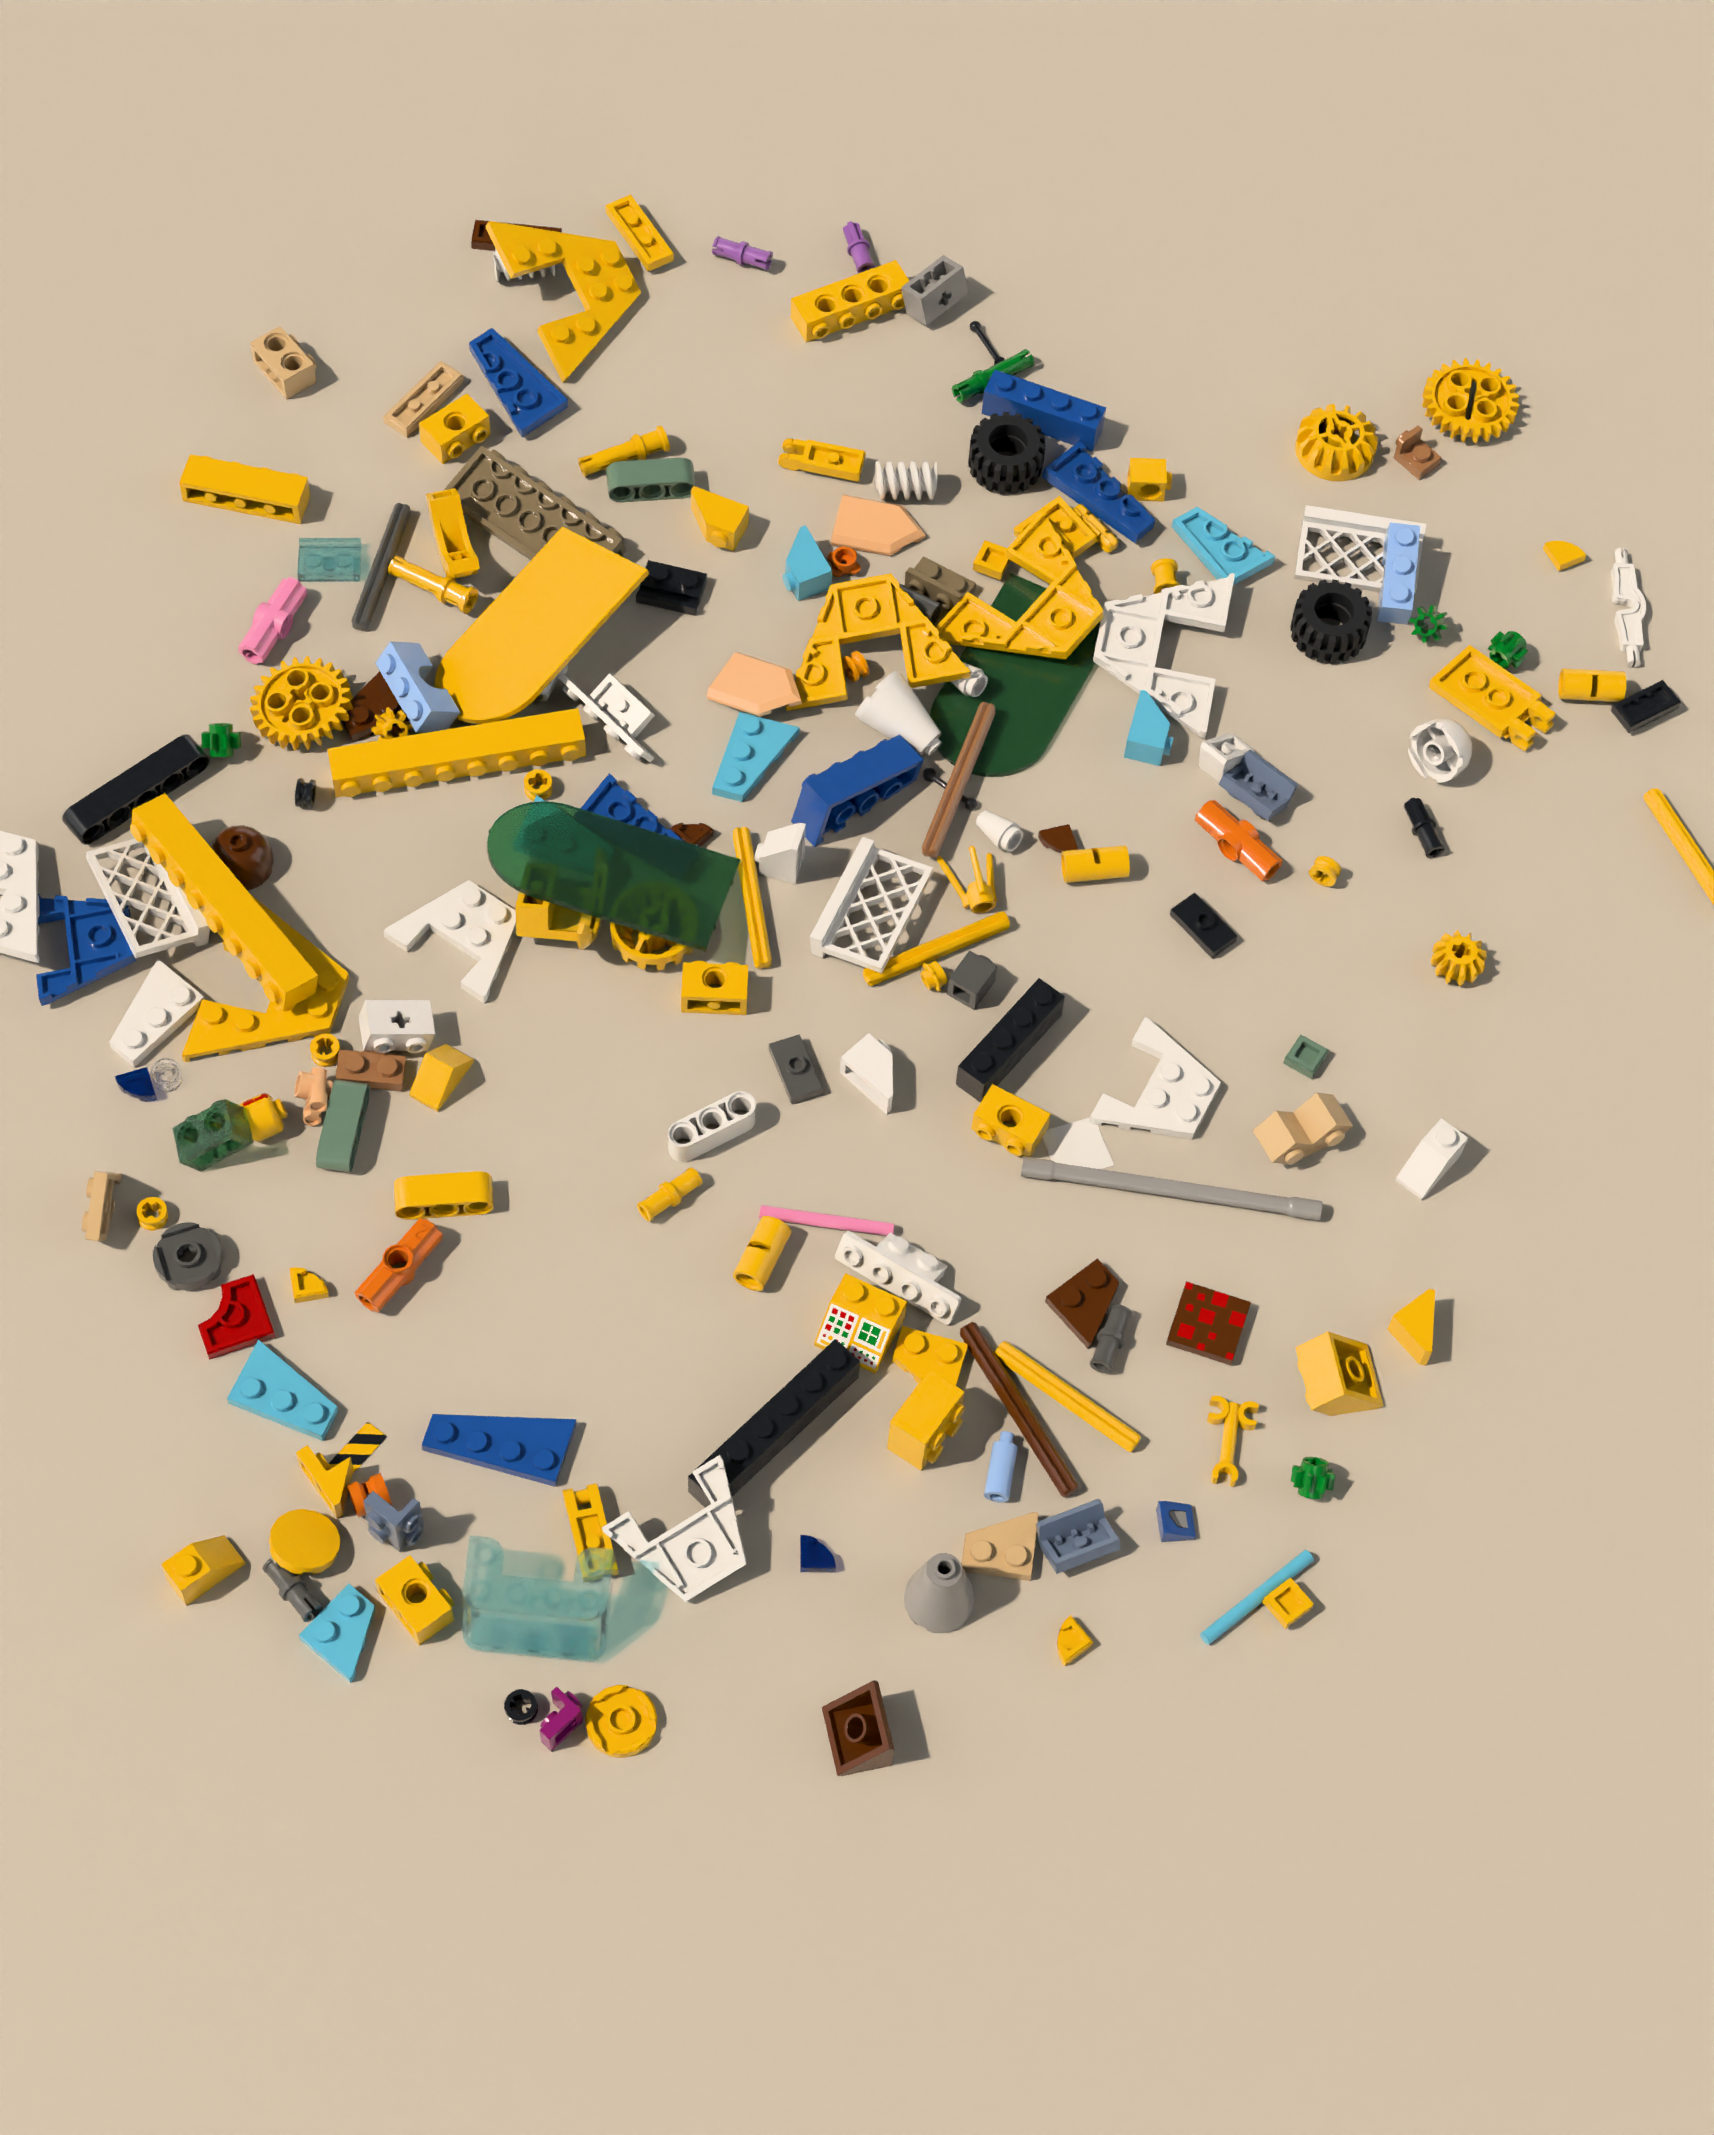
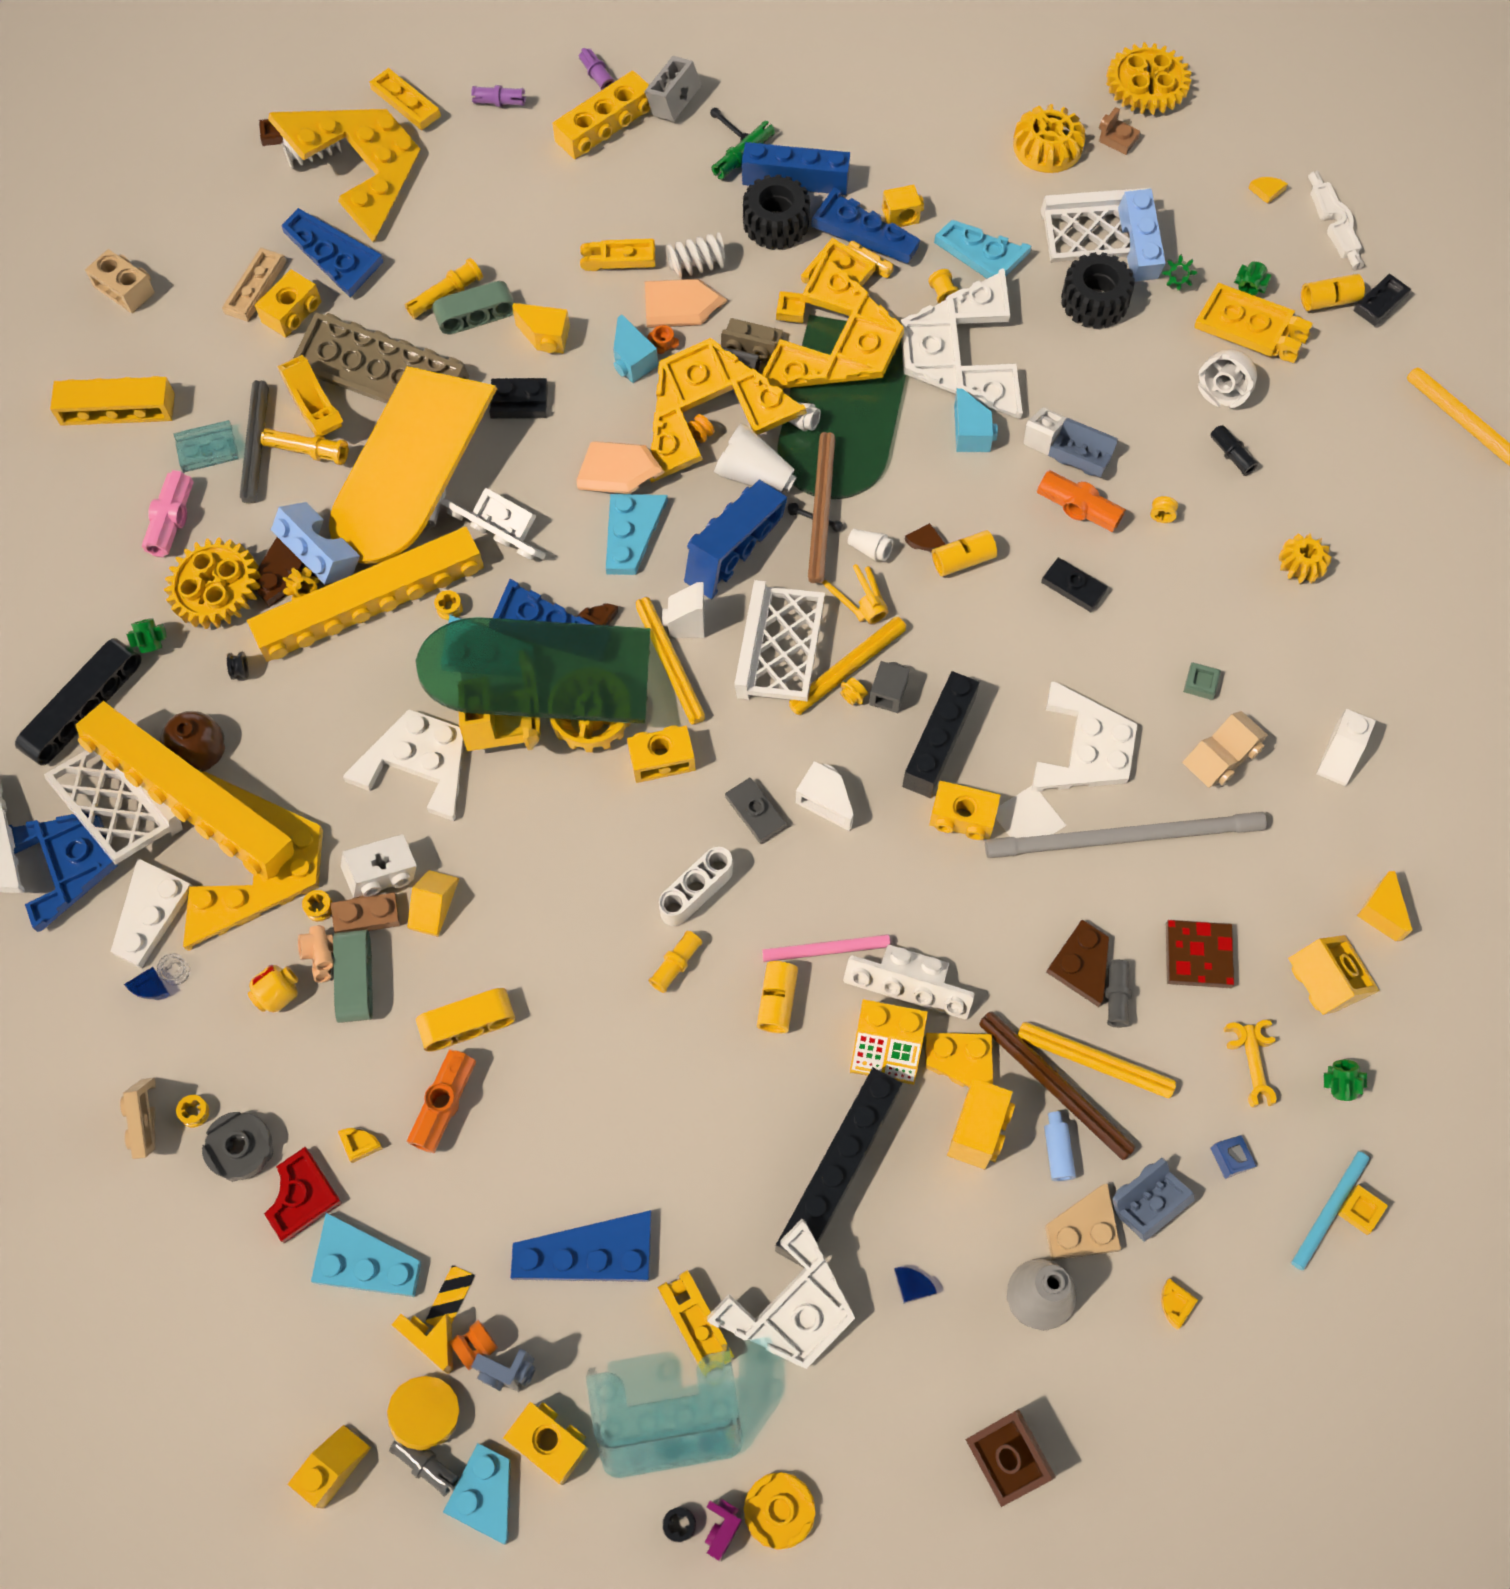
camera: 10 degrees left, 5 degrees up
(212, 1135) = (230, 1020): clear green brick -> none

